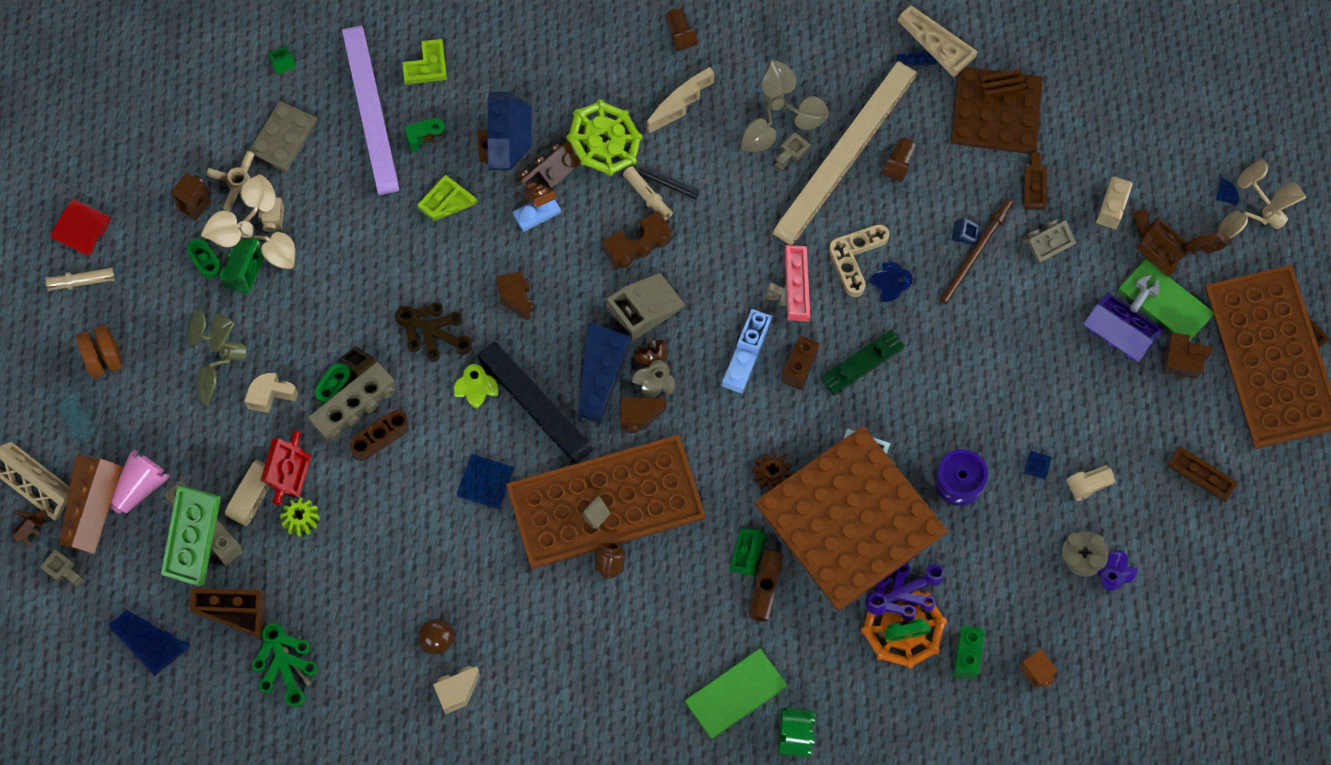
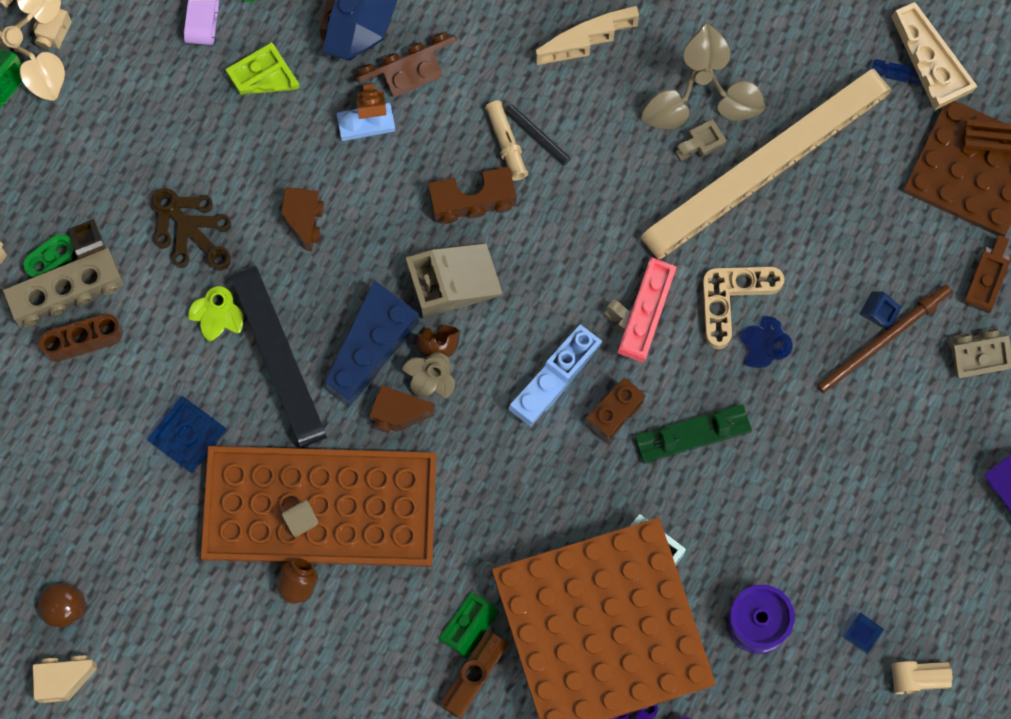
camera: 20 degrees right, 5 degrees up
(612, 129) = (492, 52): lime plate -> none
(763, 474) = (527, 525): reddish brown gear -> none
(898, 163) = (826, 199): reddish brown piece -> none

